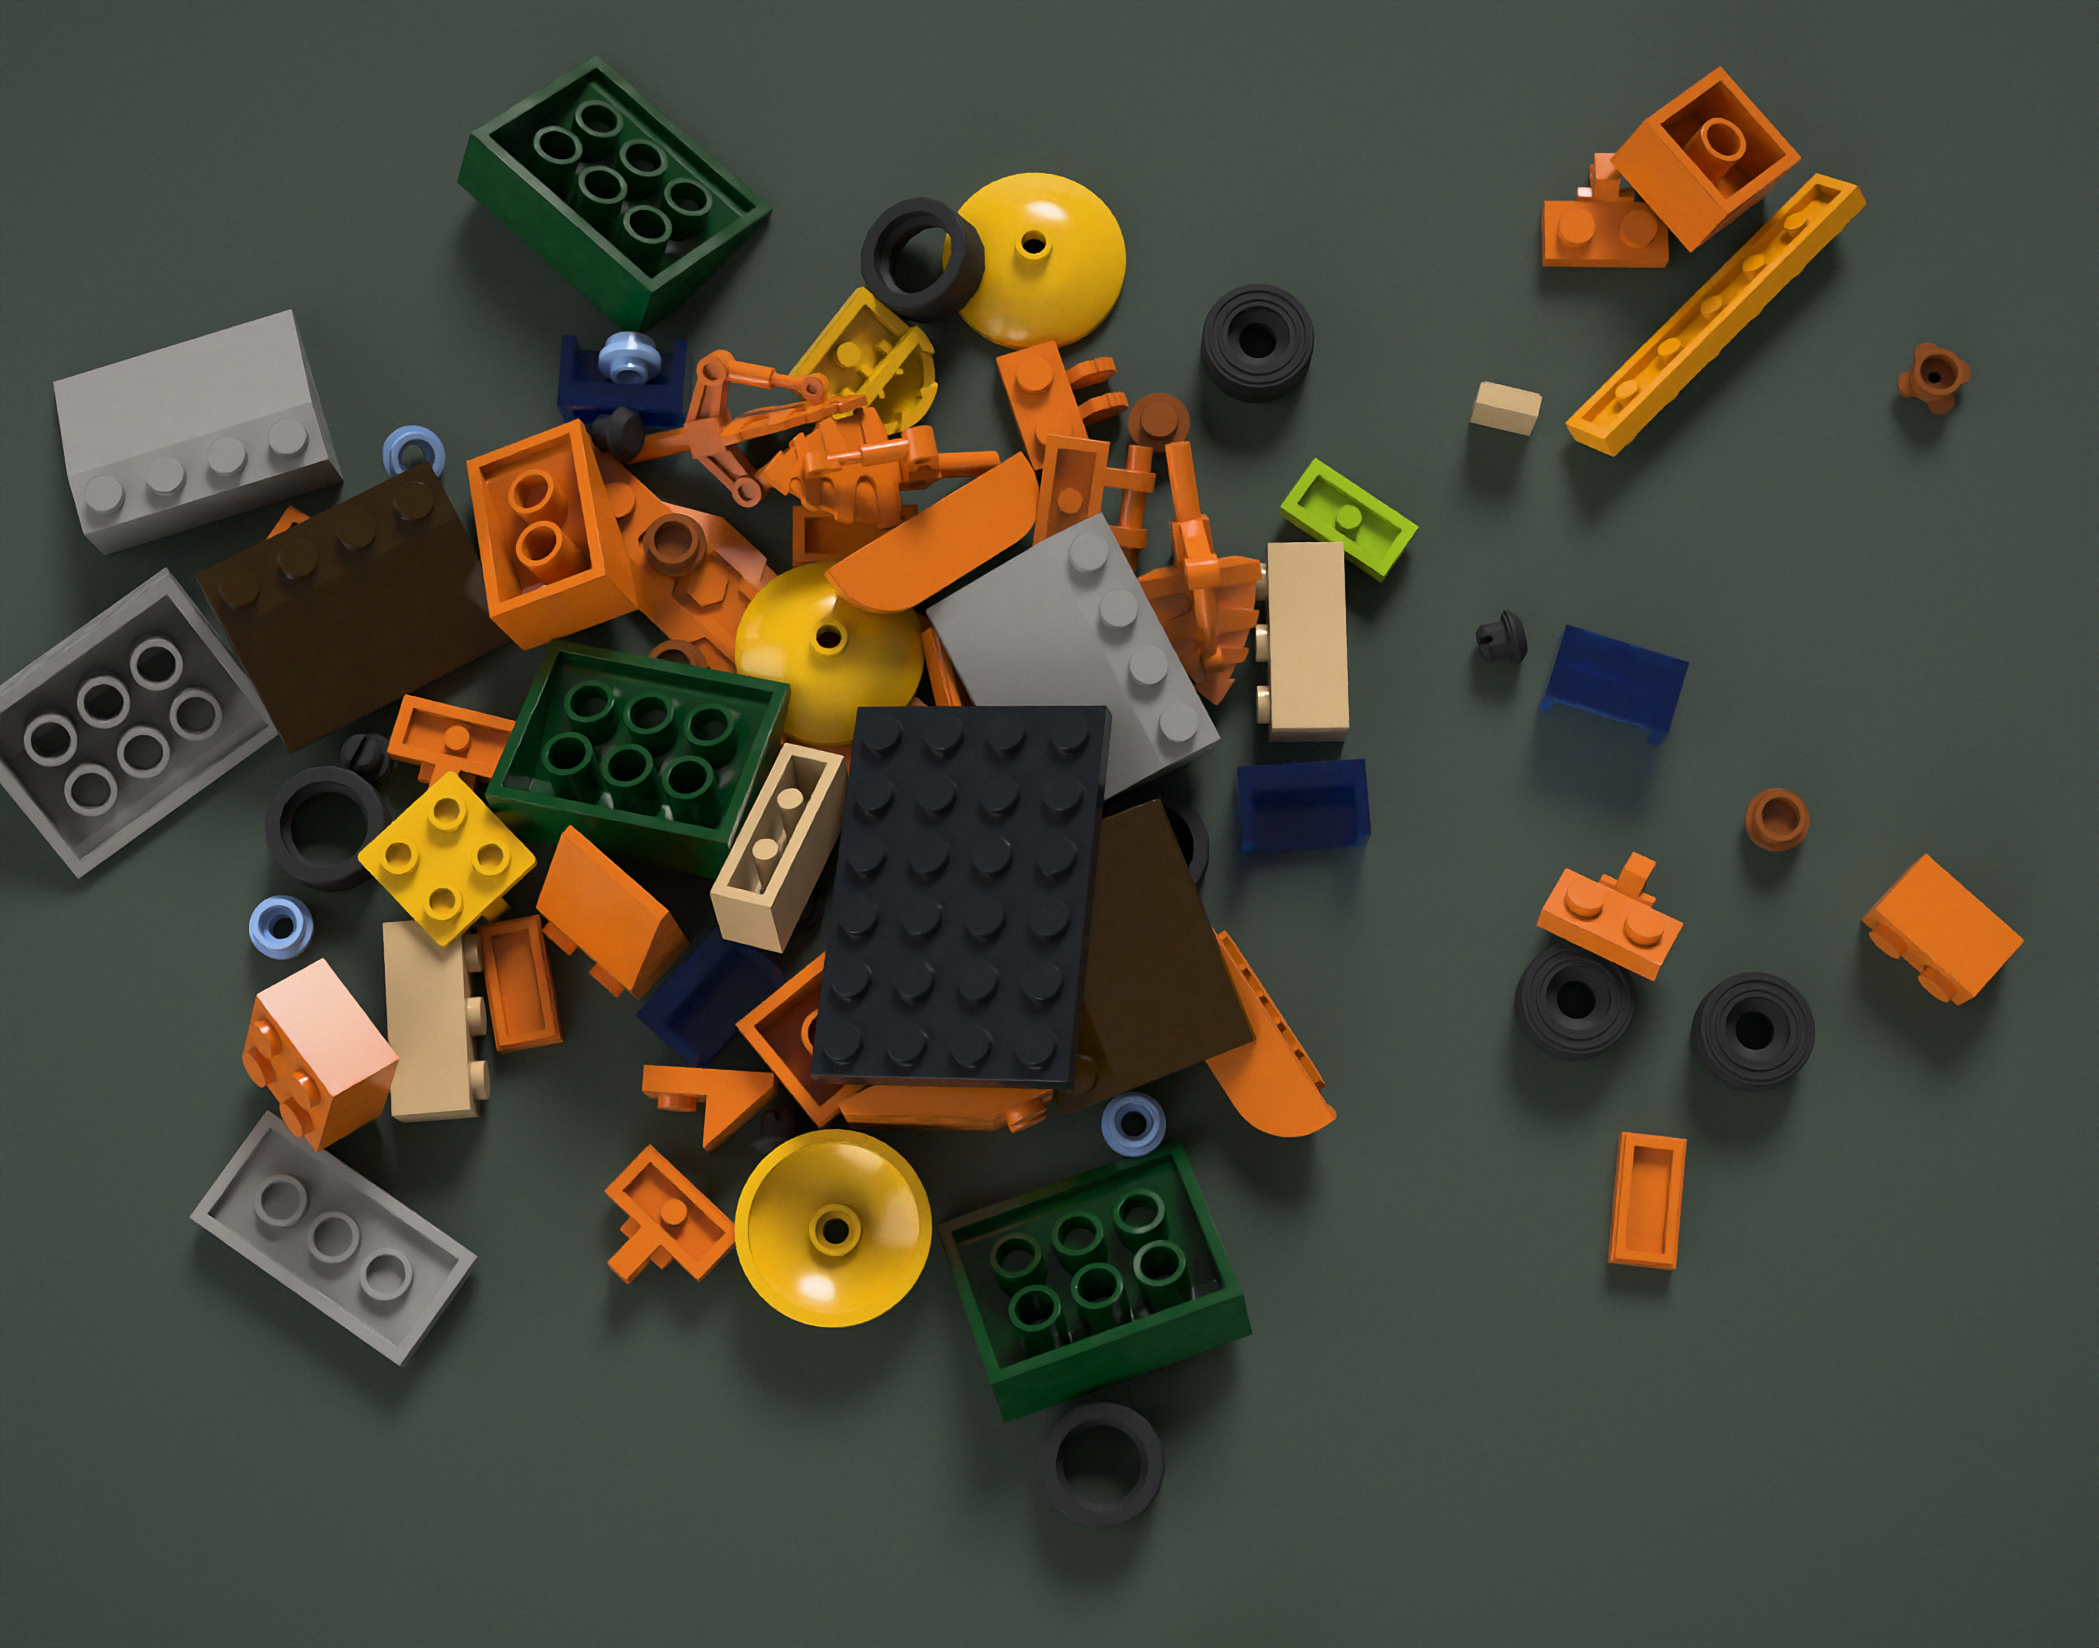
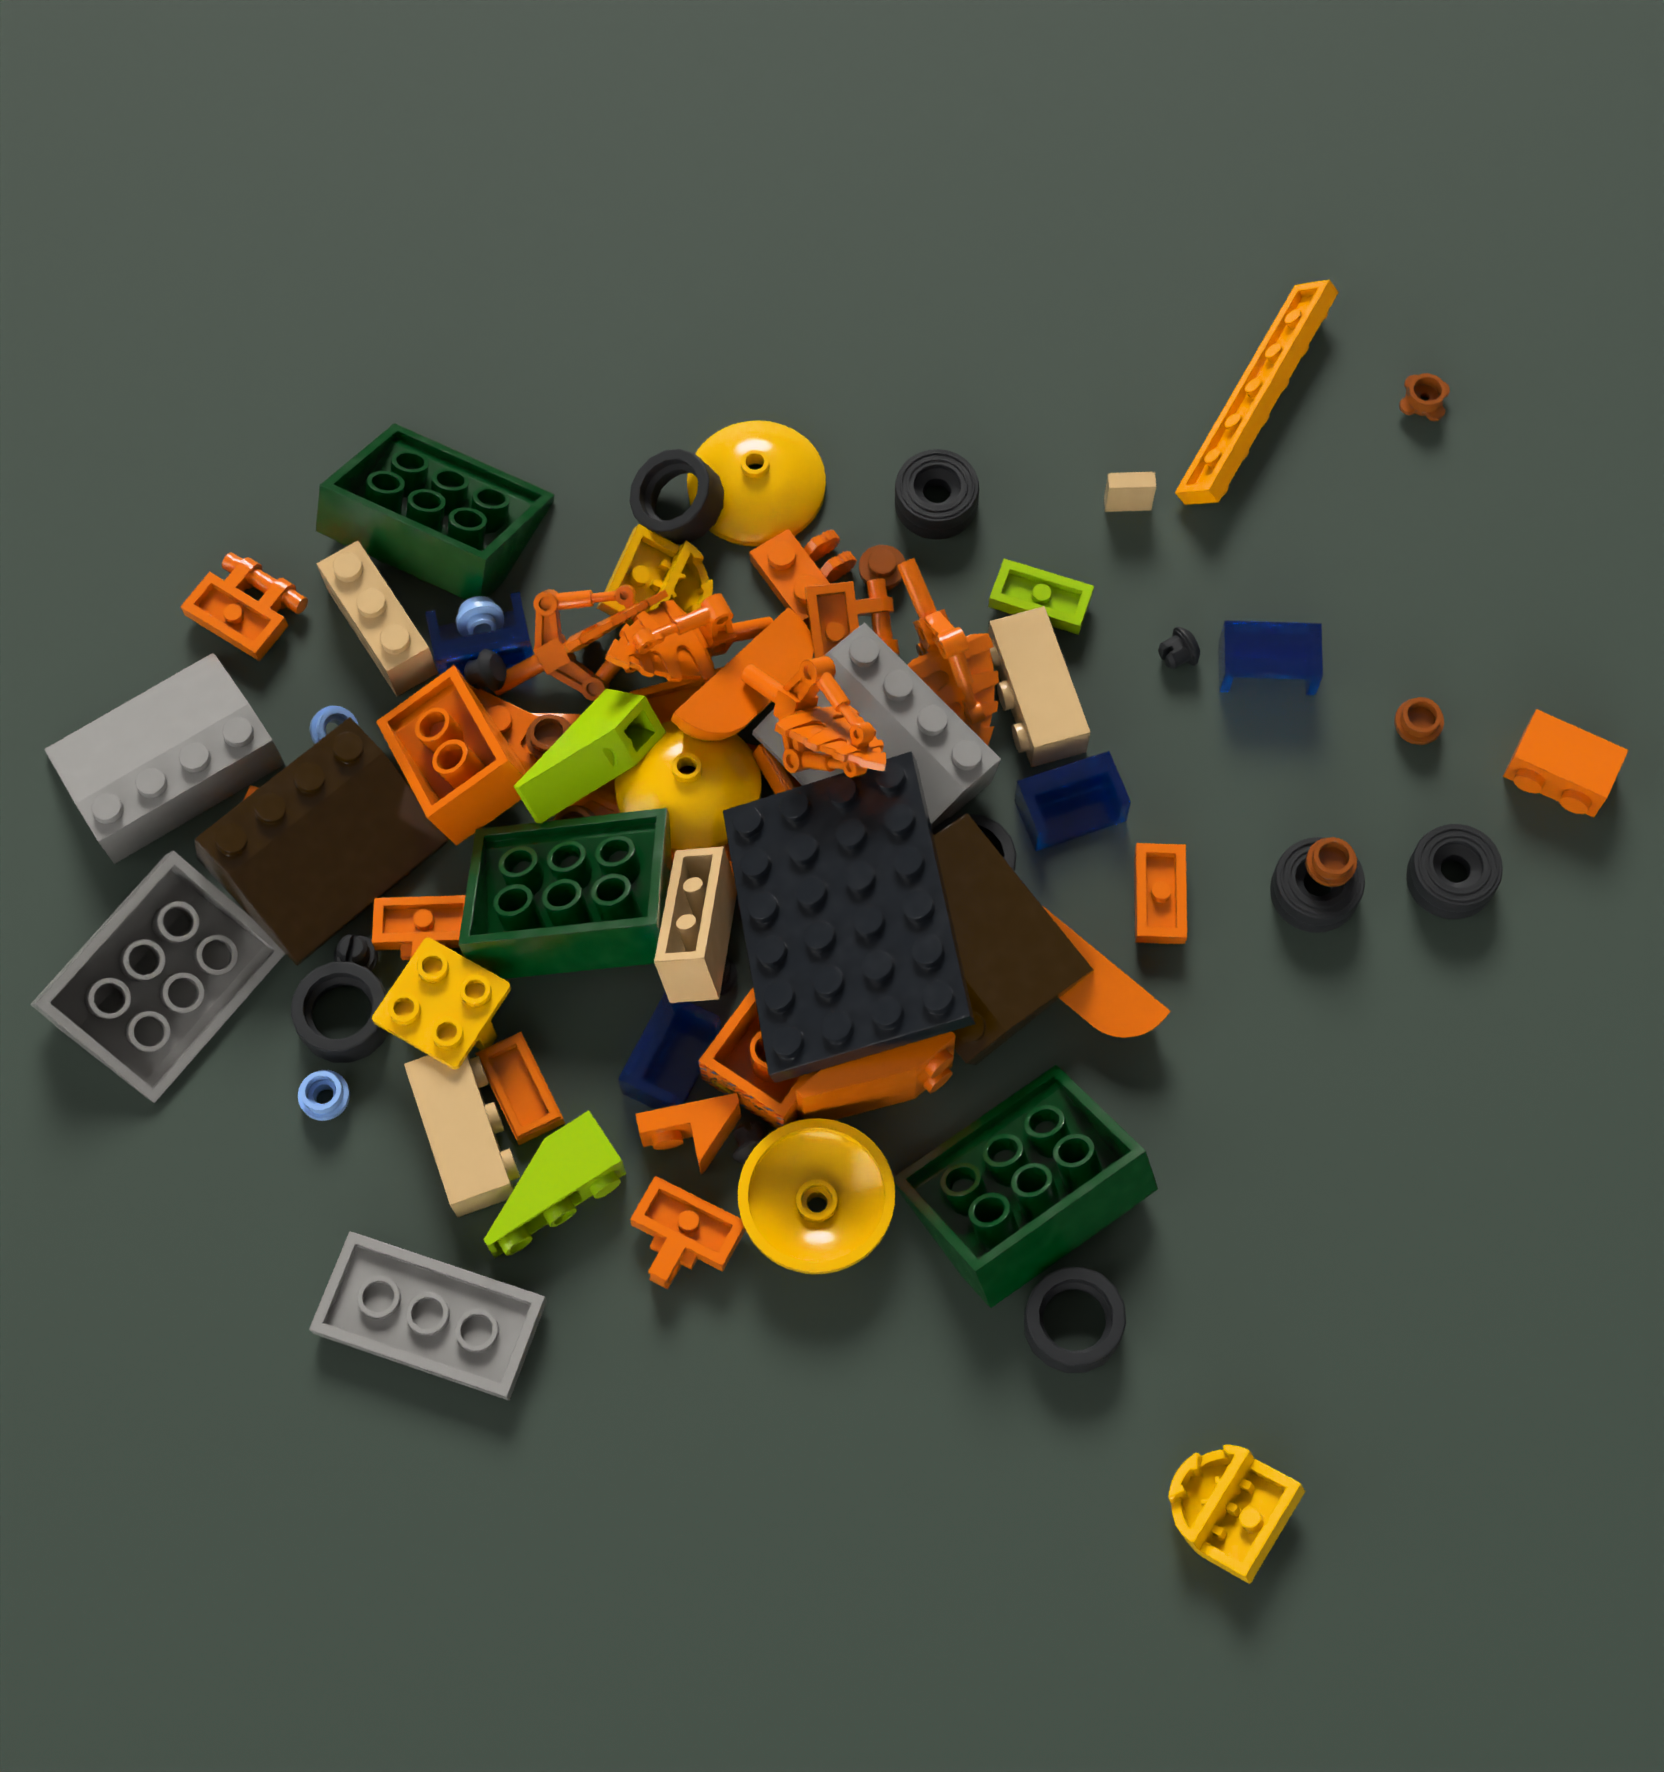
camera: 15 degrees left, 10 degrees down
(318, 1056) = (381, 1172): brick -> none
(330, 270) = (235, 615): none -> orange plate
(502, 322) = (377, 618): none -> tan brick
(538, 1110) = (561, 1175): none -> lime slope
(607, 918) = (578, 1008): orange slope -> none
(717, 584) = (590, 753): none -> lime slope
(1000, 652) = (808, 728): none -> orange bar
(1141, 1105) = (1022, 1049): light blue plate -> none
(1375, 957) = (1160, 893): none -> orange plate
(1596, 984) = (1331, 862): none -> dark orange plate
(1603, 226) = (1158, 355): orange hinge -> none
(1613, 917) = (1326, 814): orange hinge -> none
(1647, 1201) = (1418, 1014): orange tile -> none
(1705, 158) = (1216, 288): orange brick -> none

